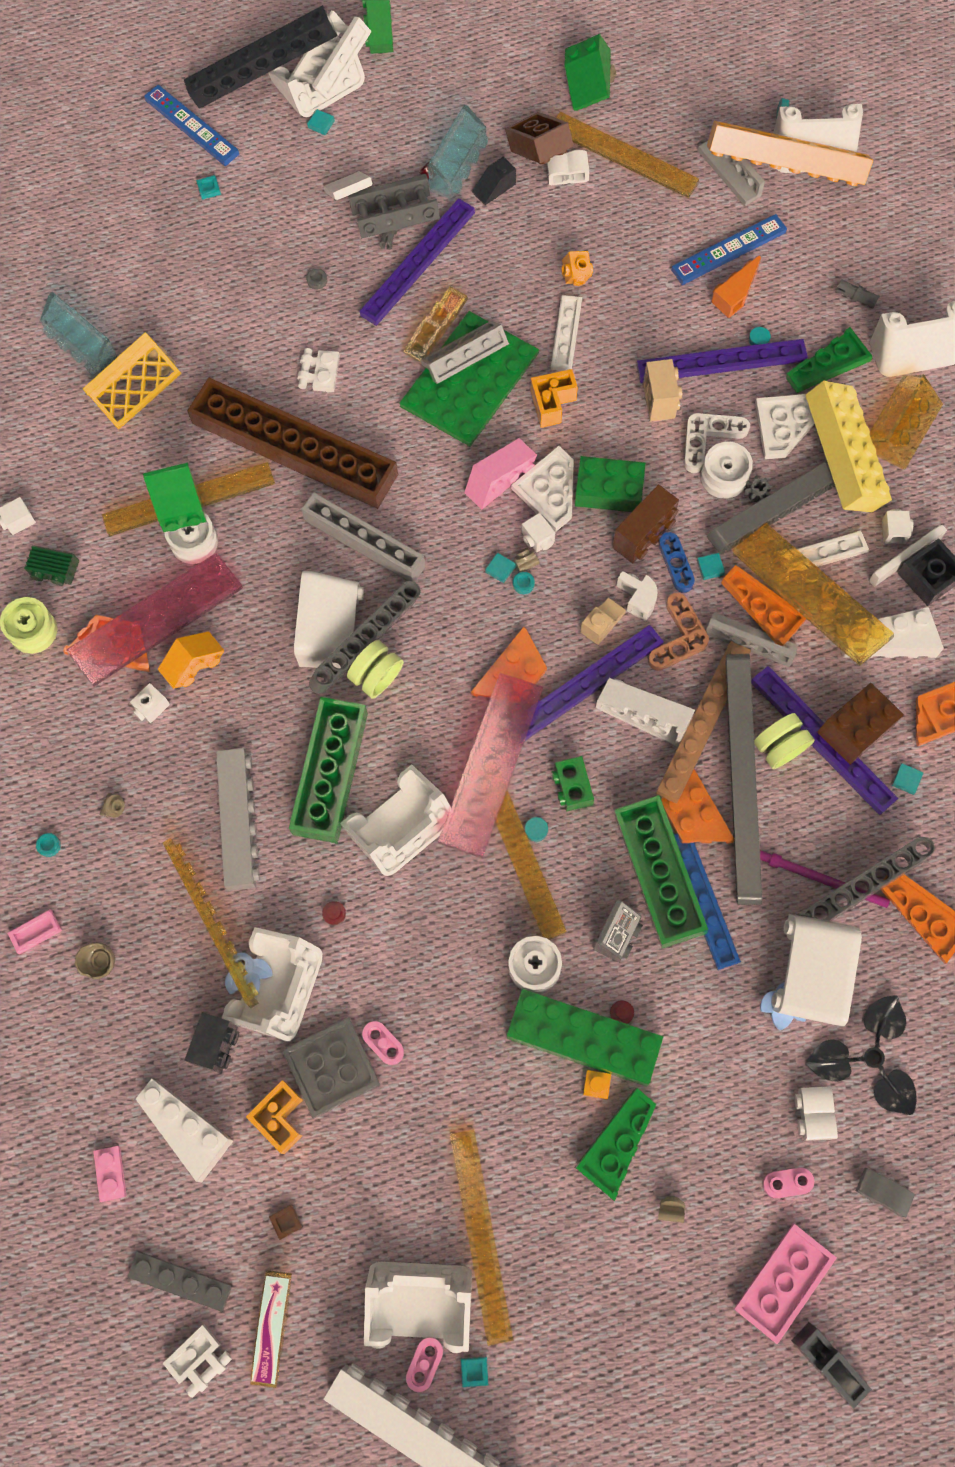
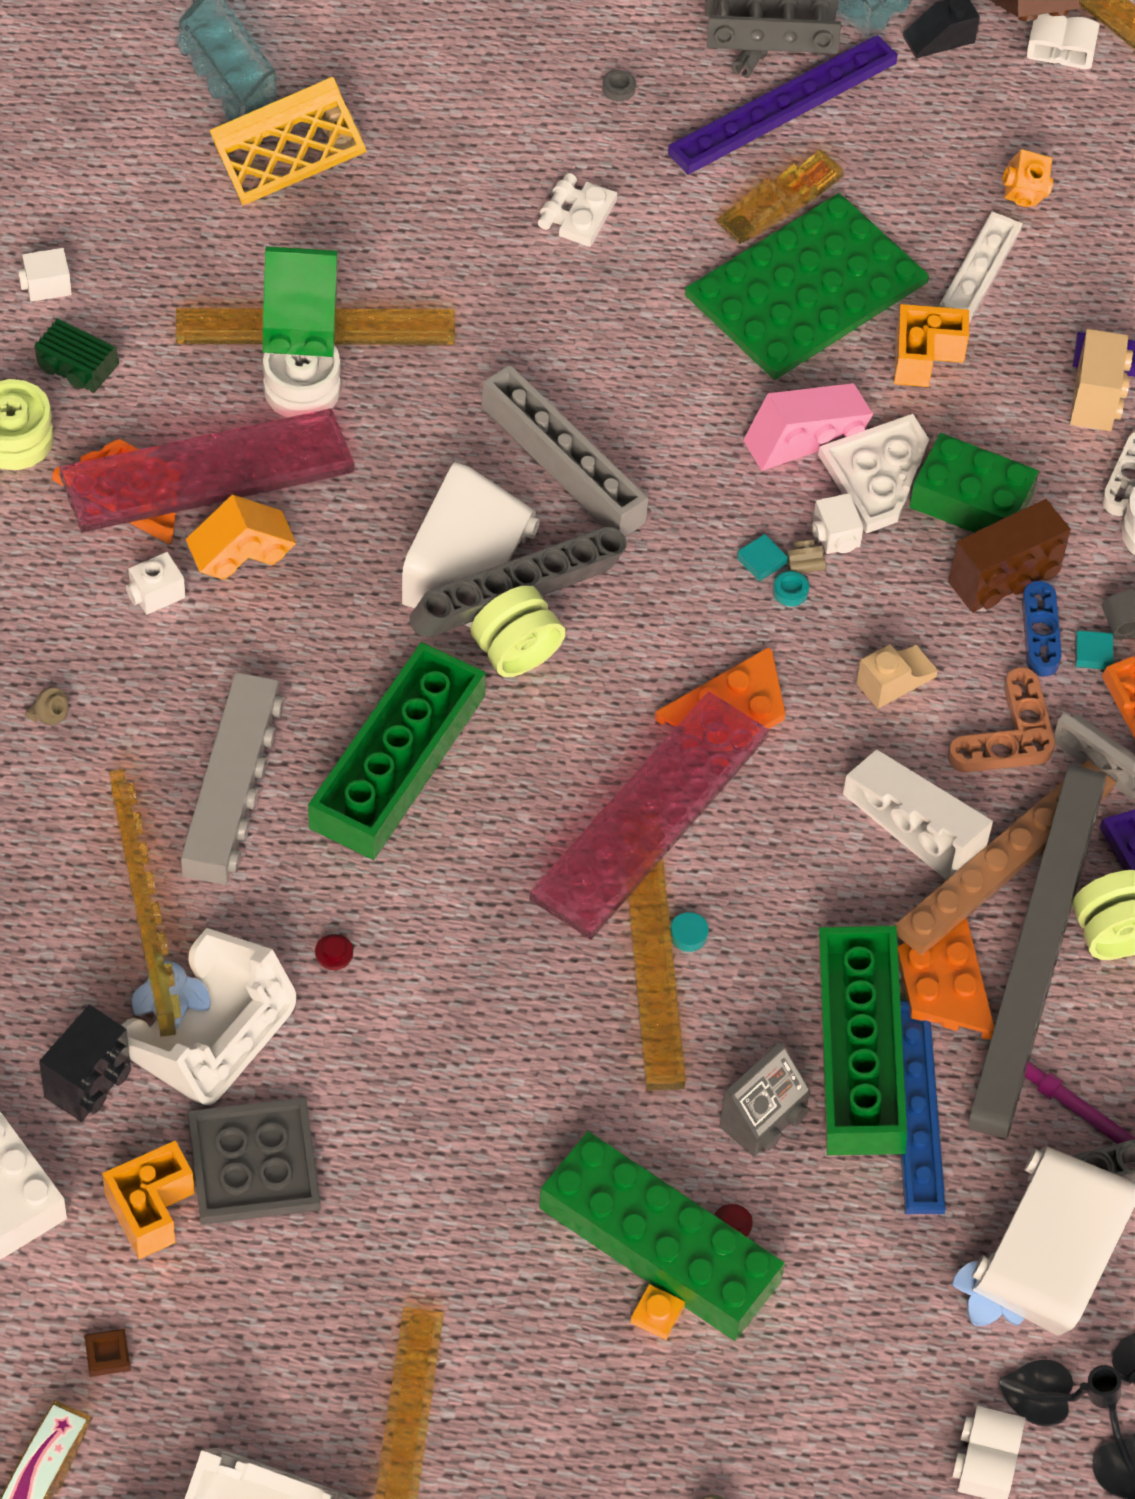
camera: 10 degrees right, 15 degrees down
(293, 442) = (504, 294): reddish brown brick -> none
(383, 1043) = (347, 1153): bright pink plate -> none
(400, 824) = (483, 862): white windscreen -> none
(465, 351) = (813, 243): light grey fence -> none
(535, 950) = (621, 1107): white wheel -> none
(578, 783) = (773, 884): green brick -> none
(594, 678) = (849, 748): dark purple plate -> none
(616, 1145) = (653, 1406): green wing -> none
(643, 594) = (970, 653): white brick -> none

